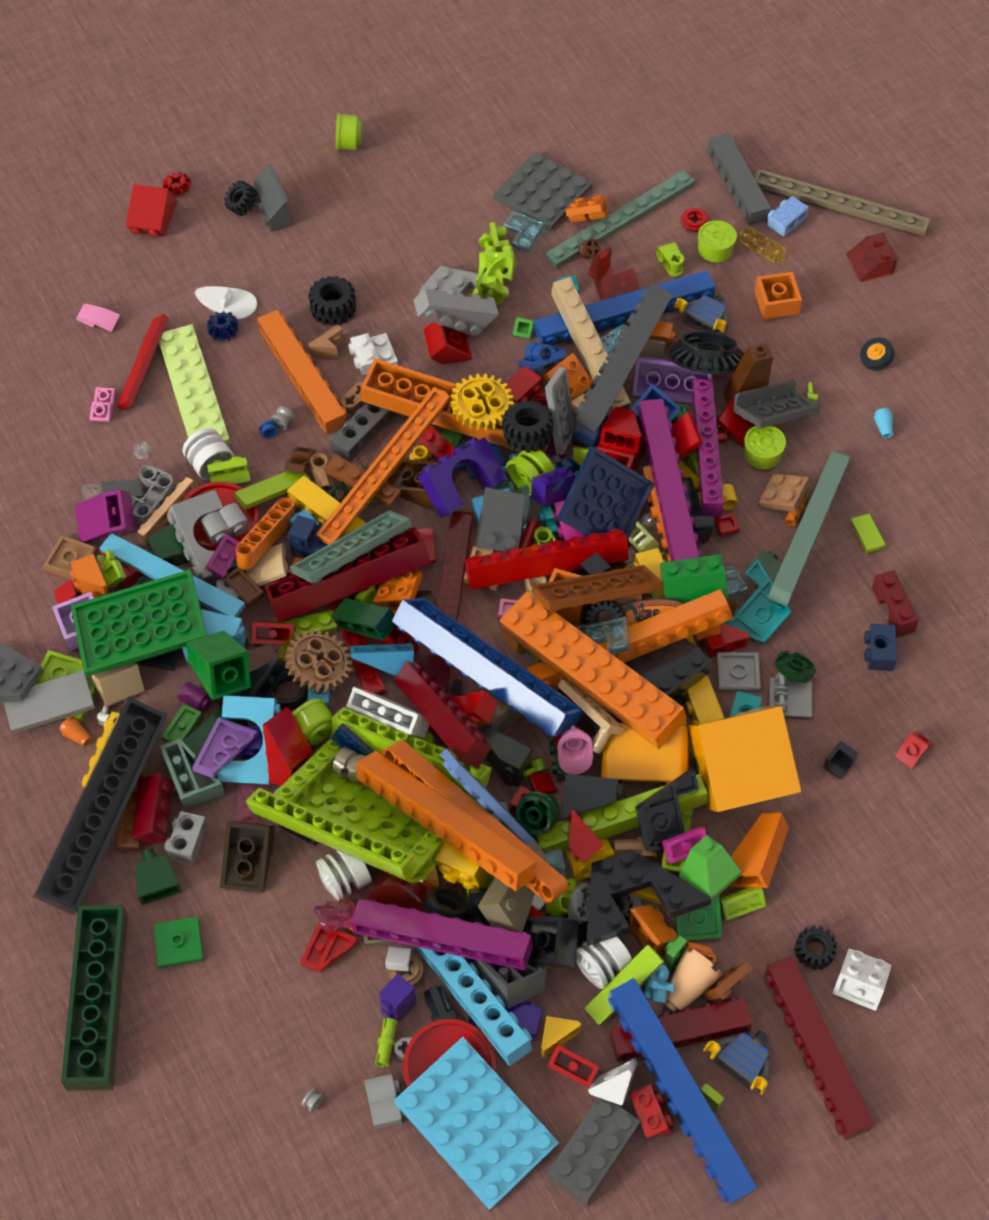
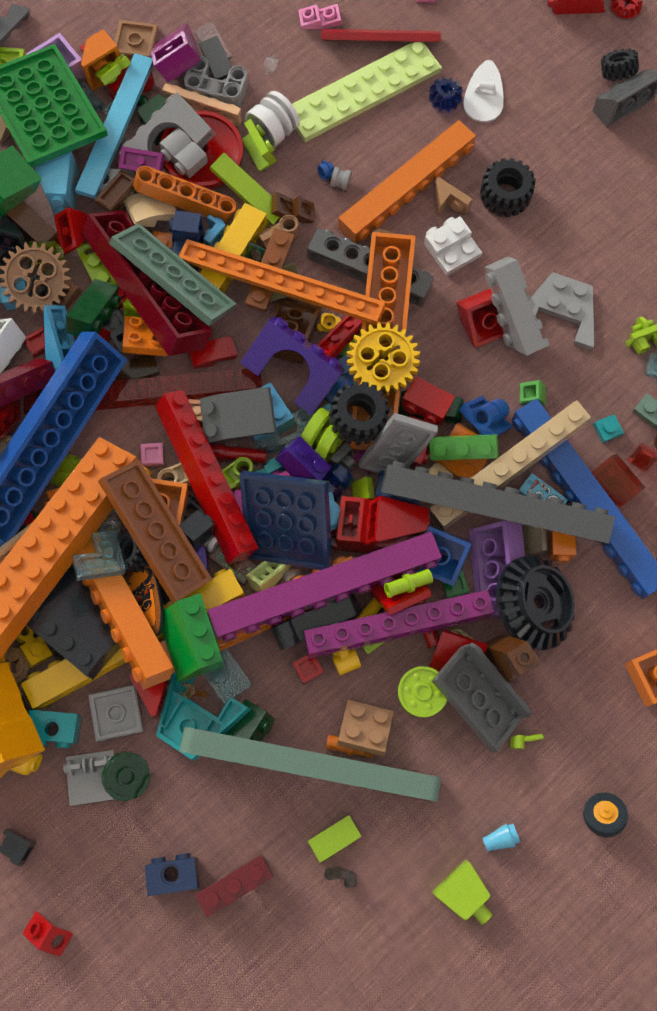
camera: 75 degrees right, 15 degrees up
(493, 280) = (602, 342): lime hips -> none
(572, 360) = (464, 447): none -> bright green plate
(679, 424) = (408, 583): none -> lime pin
(704, 313) = (606, 592): torso -> none
(898, 530) = (337, 873): none -> clear smoke arm
(921, 454) = (464, 893): none -> lime torso

